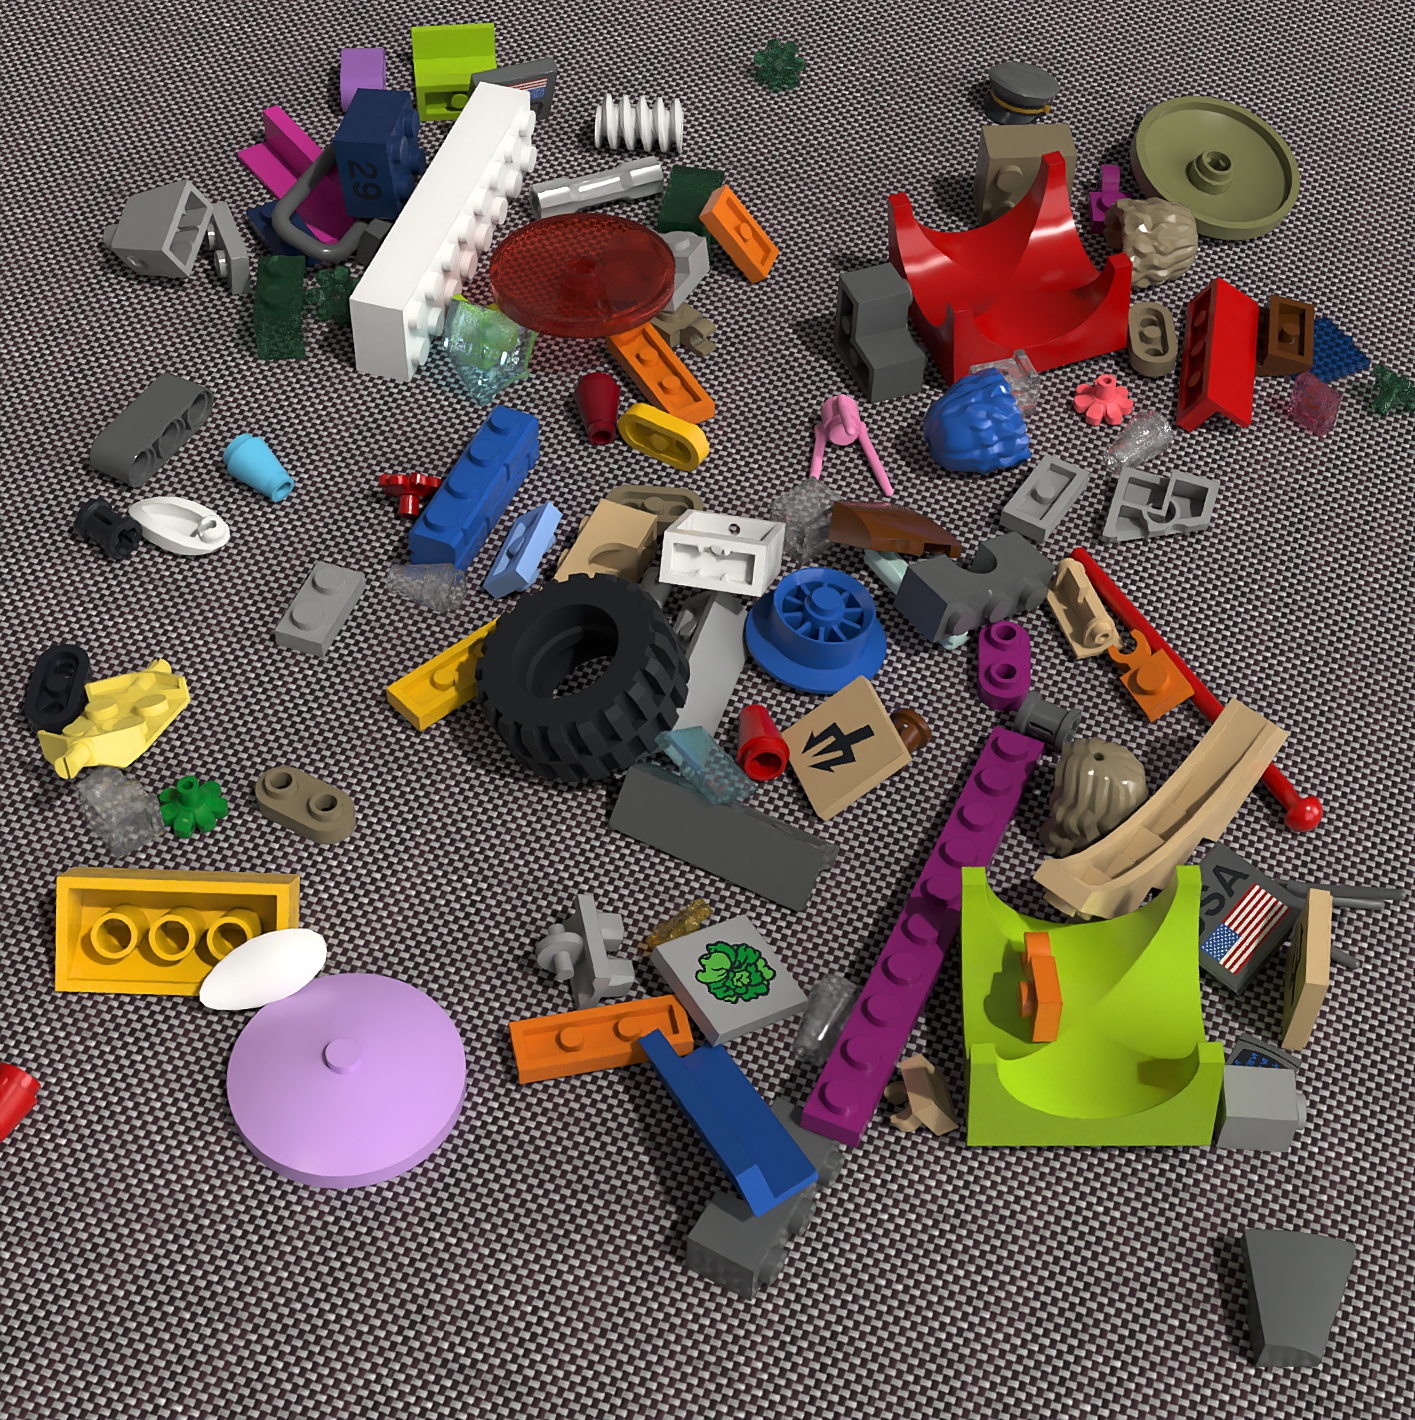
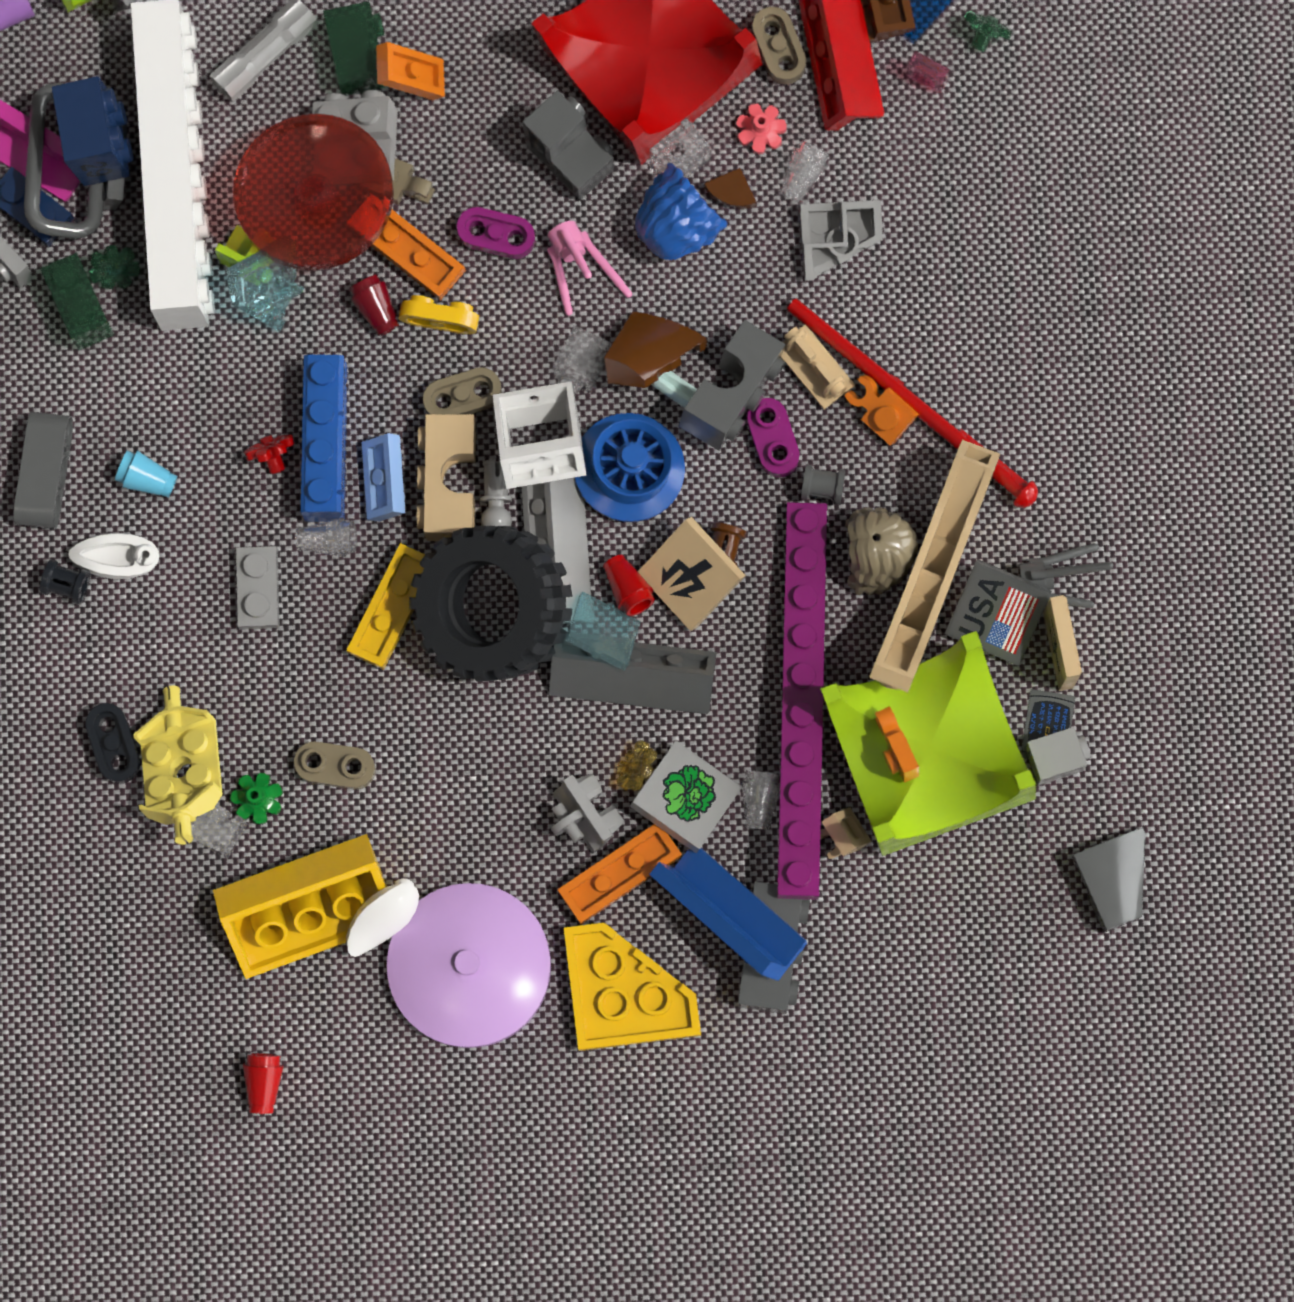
camera: 15 degrees left, 30 degrees up
(535, 1183) = (623, 993): none -> yellow plate
(764, 392) = (498, 230): none -> magenta plate
(1044, 498) = (751, 259): light grey plate -> none
(1049, 438) = (731, 190): none -> reddish brown tile

